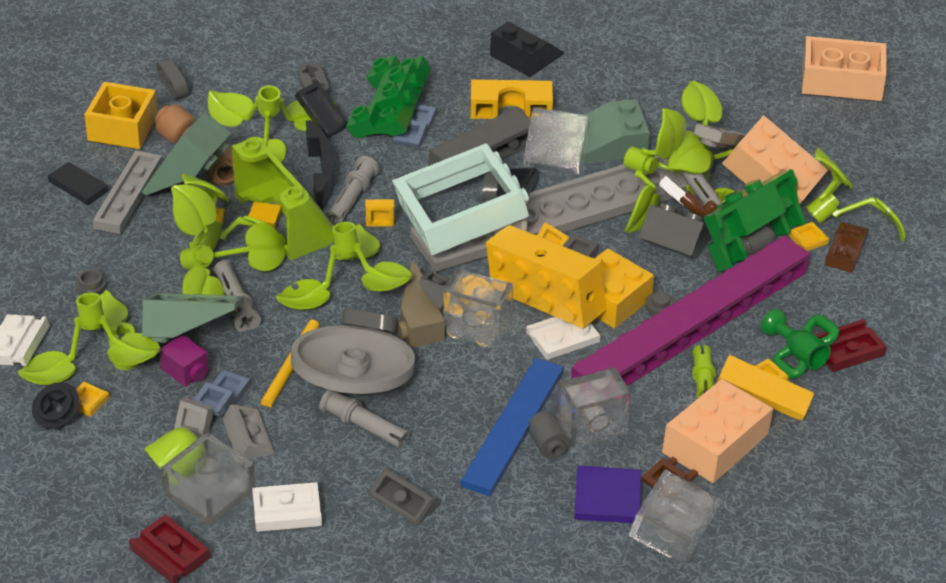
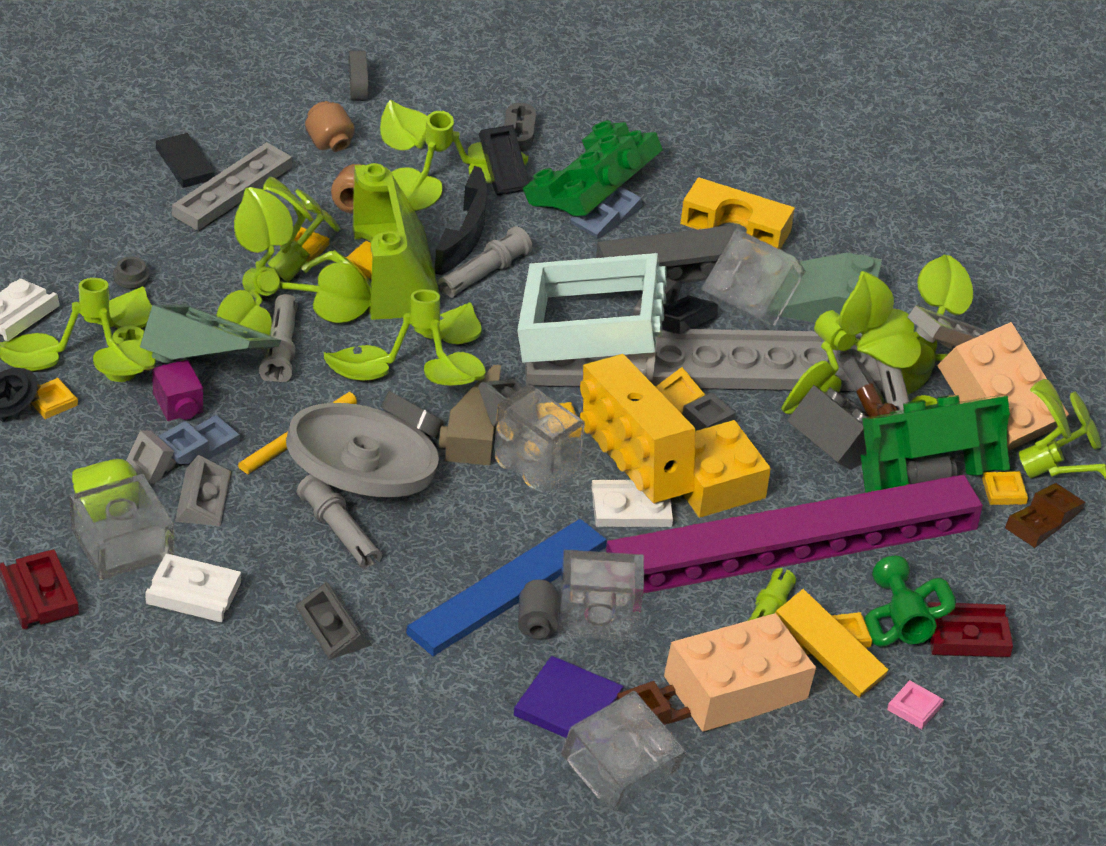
camera: 20 degrees right, 0 degrees up
(121, 115) = (271, 97): yellow brick -> none
(194, 151) = (316, 157): sand green slope -> none
(379, 212) = (500, 297): yellow tile -> none
(522, 49) = (789, 161): black slope -> none
(658, 301) = (767, 501): dark grey plate -> none
(844, 411) = (915, 704): none -> bright pink tile

